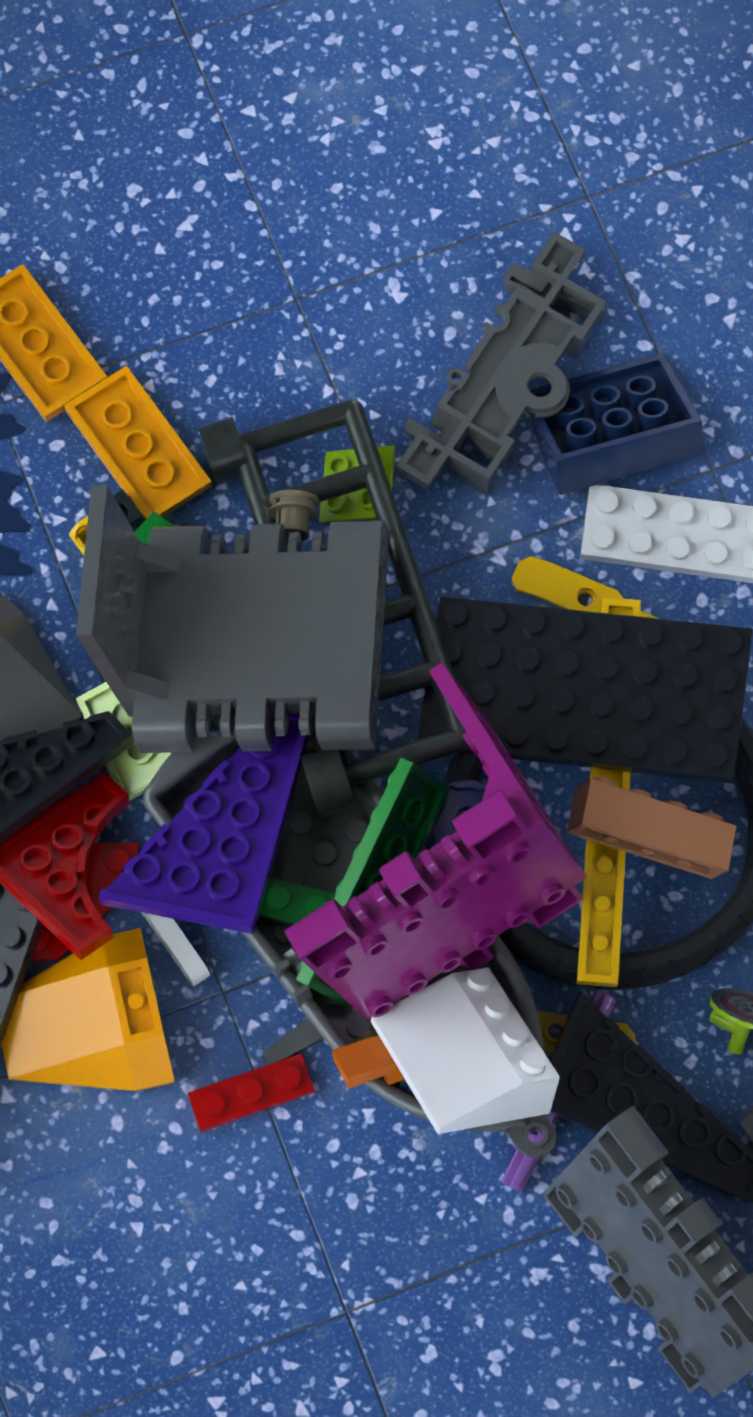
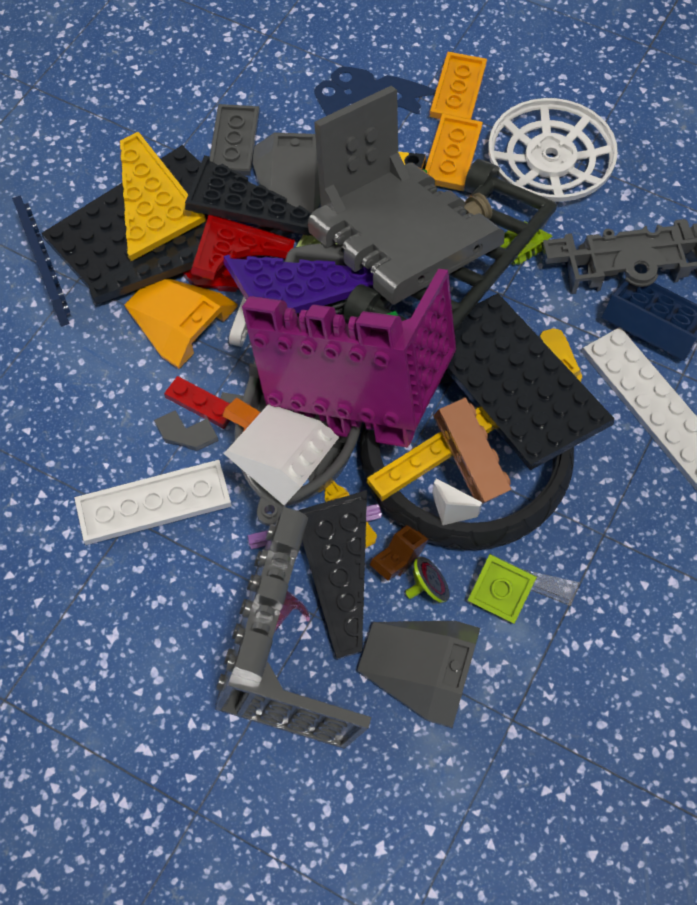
camera: 55 degrees right, 10 degrees down
(251, 303) = (555, 144): none -> white dish
(269, 1160) = (193, 437): none -> dark grey tile
(354, 1266) = (152, 502): none -> white plate
(682, 1020) = (400, 554): none -> reddish brown brick
(693, 909) = (454, 504): none -> white slope

